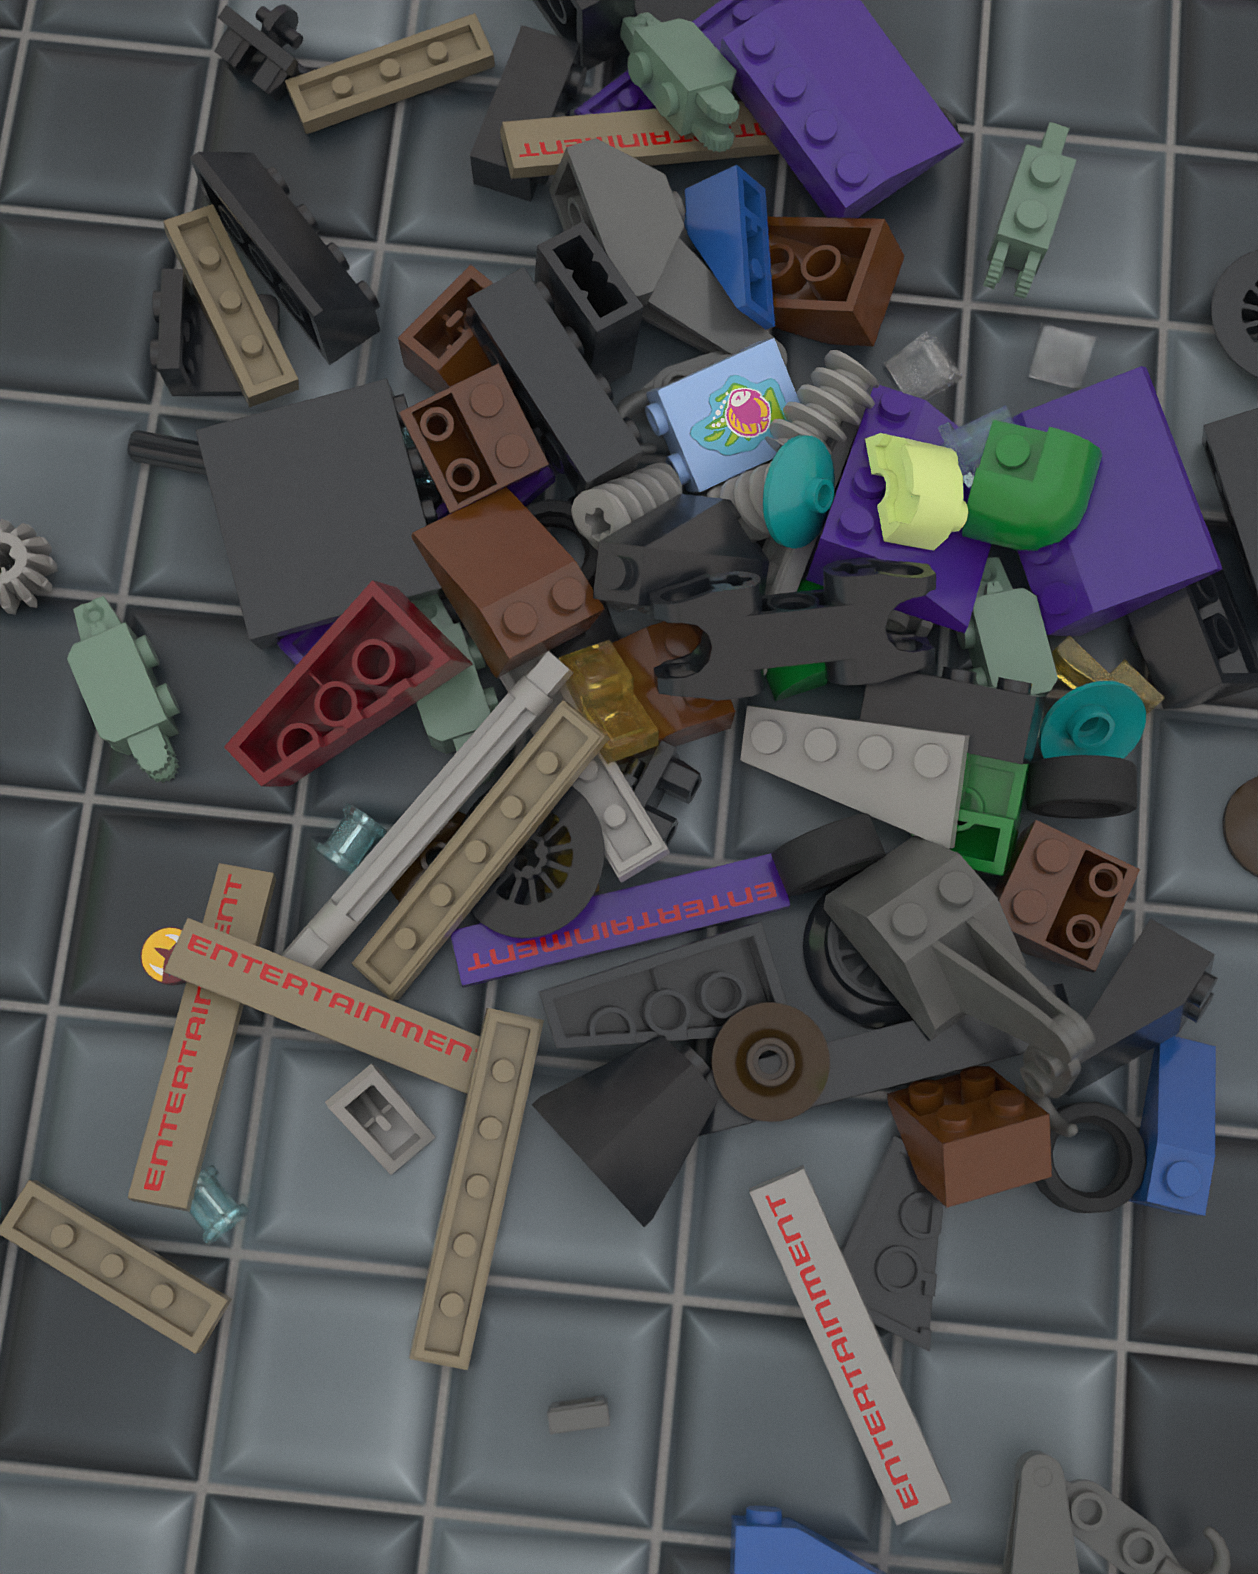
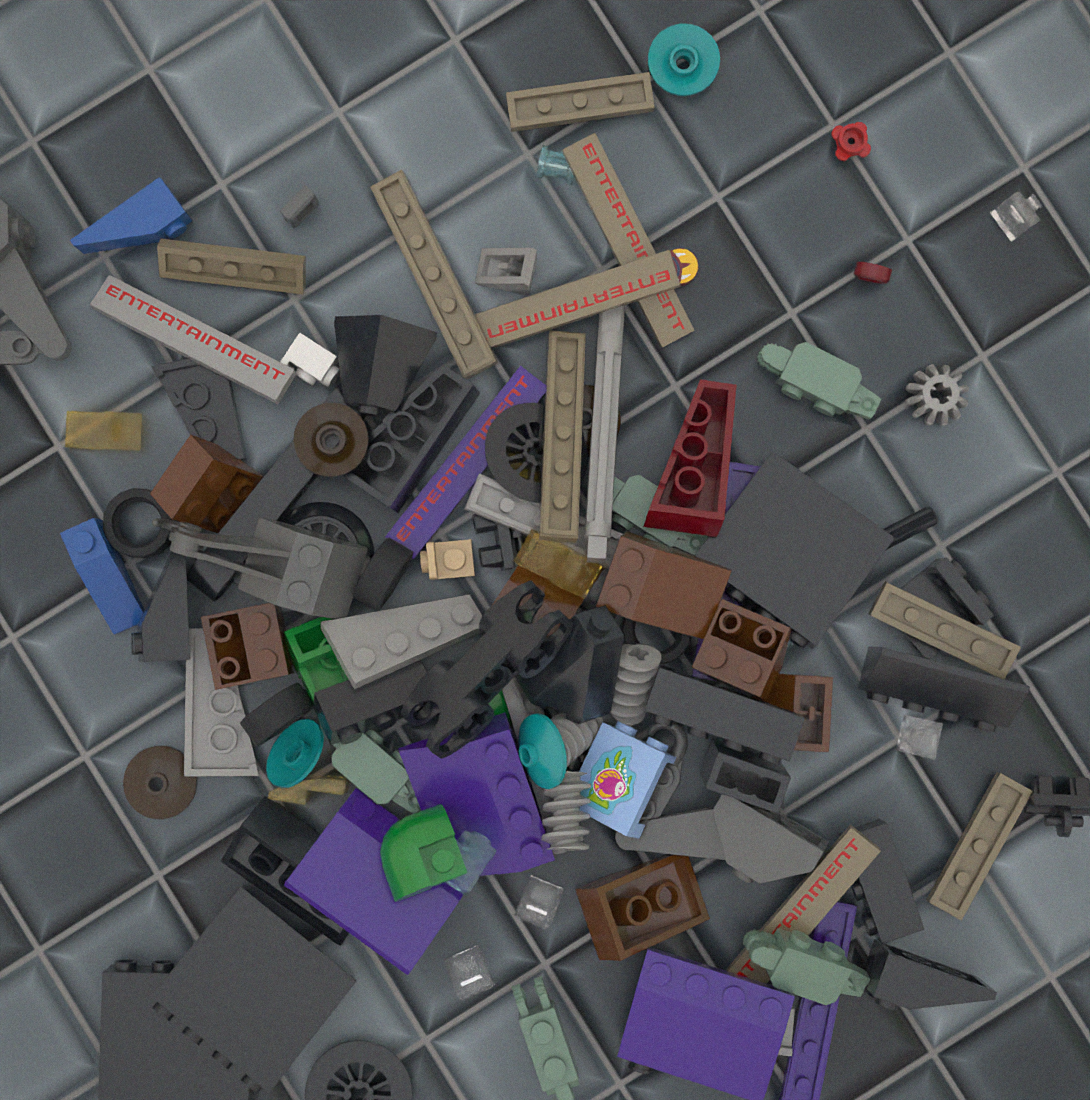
camera: 145 degrees right, 10 degrees up
(350, 839) = (636, 393): clear light blue bush -> none
(356, 228) = (919, 737): none -> clear tile
(717, 1192) = (312, 361): none -> white brick
(727, 1406) = (232, 266): none -> dark tan plate
(731, 233) = (701, 889): blue slope -> none
(733, 820) = (448, 559): none -> tan bracket
(921, 492) = (478, 802): yellowish green cylinder -> none
(1050, 1317) = (103, 431): none -> clear yellow slope
(1169, 839) = (213, 729): none -> light grey wing

